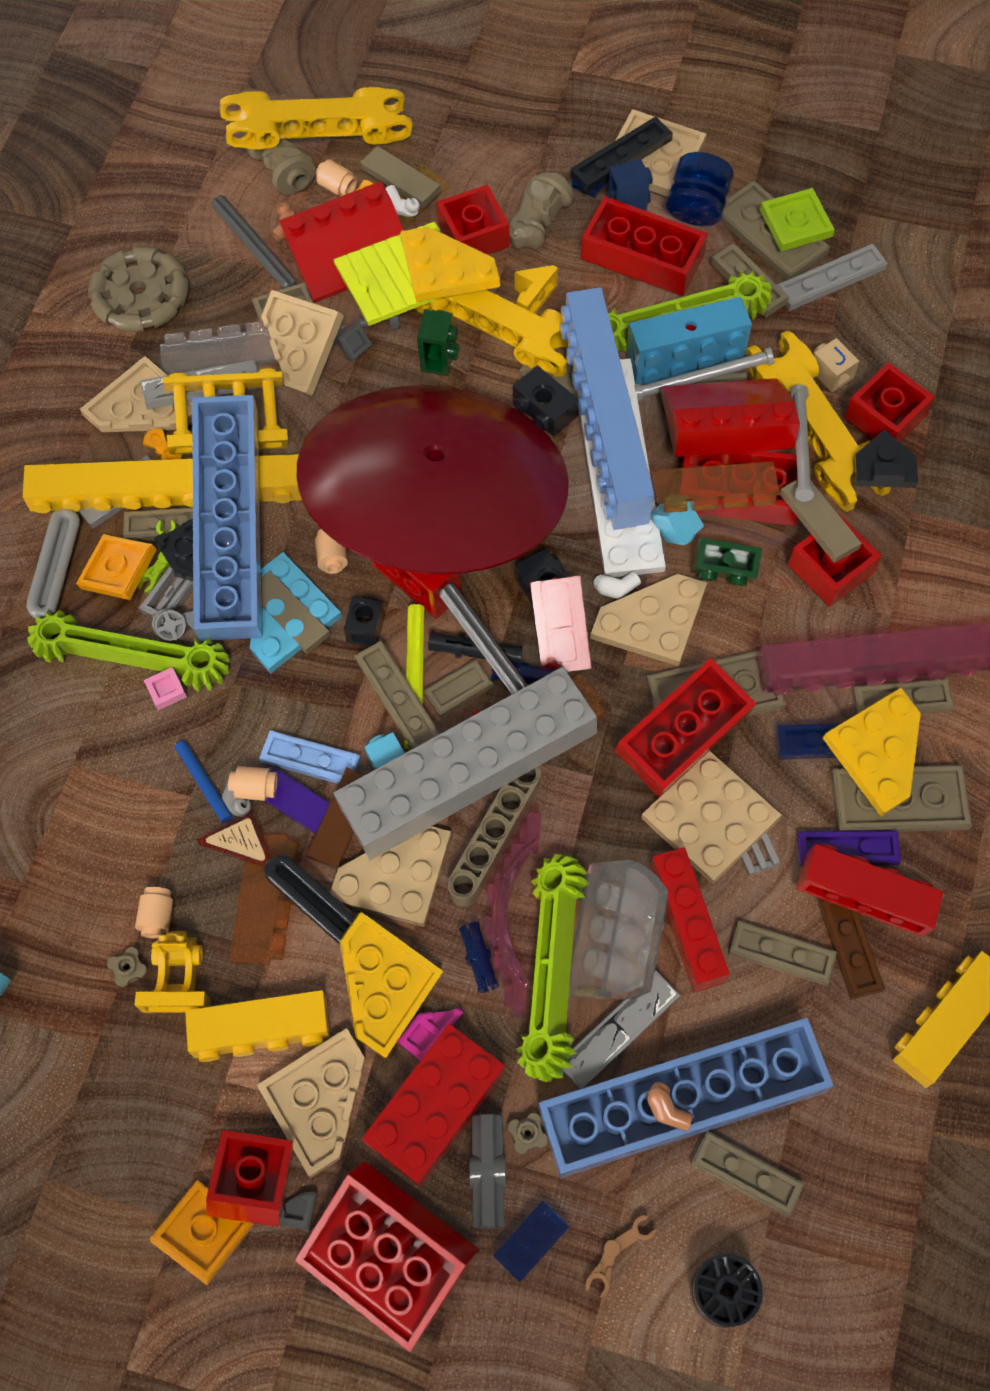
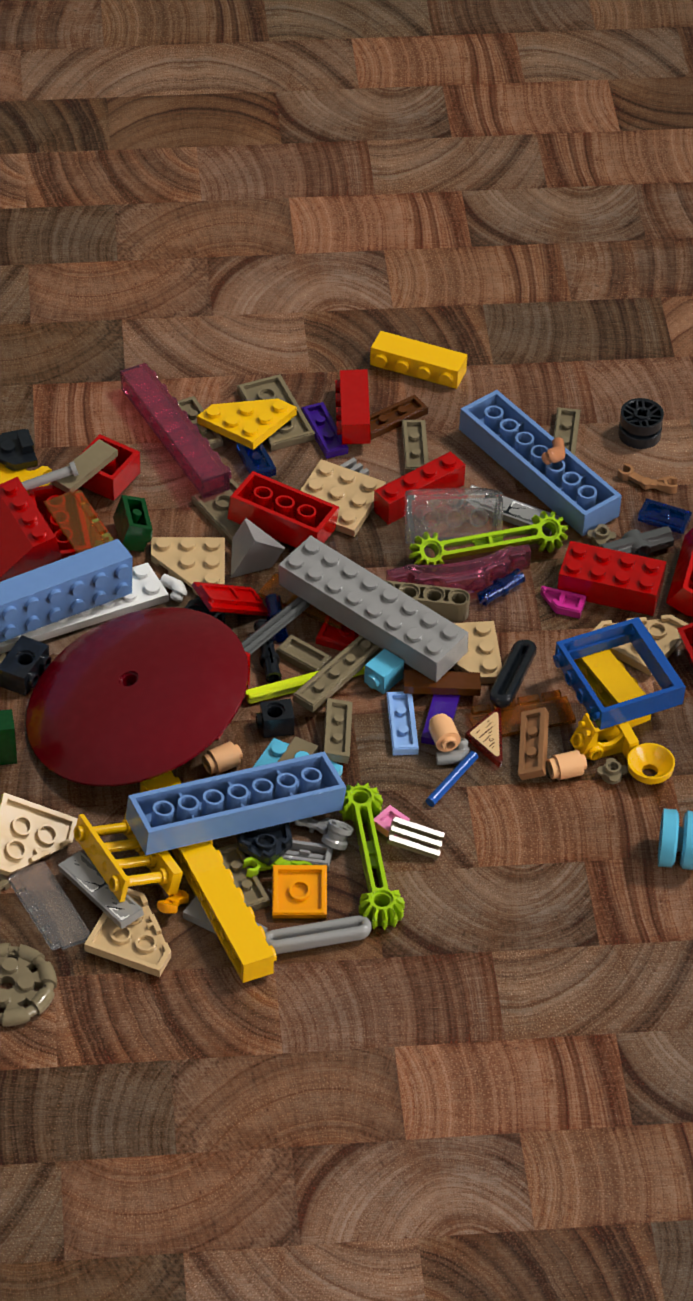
camera: 115 degrees left, 20 degrees down
(92, 1004) = (650, 757): none -> yellow piece
(123, 699) = (415, 833): none -> tile
(202, 885) = (533, 743): none -> medium nougat plate
(235, 1076) = (607, 638): none -> blue window
(319, 678) = (337, 730): none -> dark tan plate
(383, 983) = (547, 623): yellow plate -> none
(639, 678) = (253, 550): none -> light grey slope

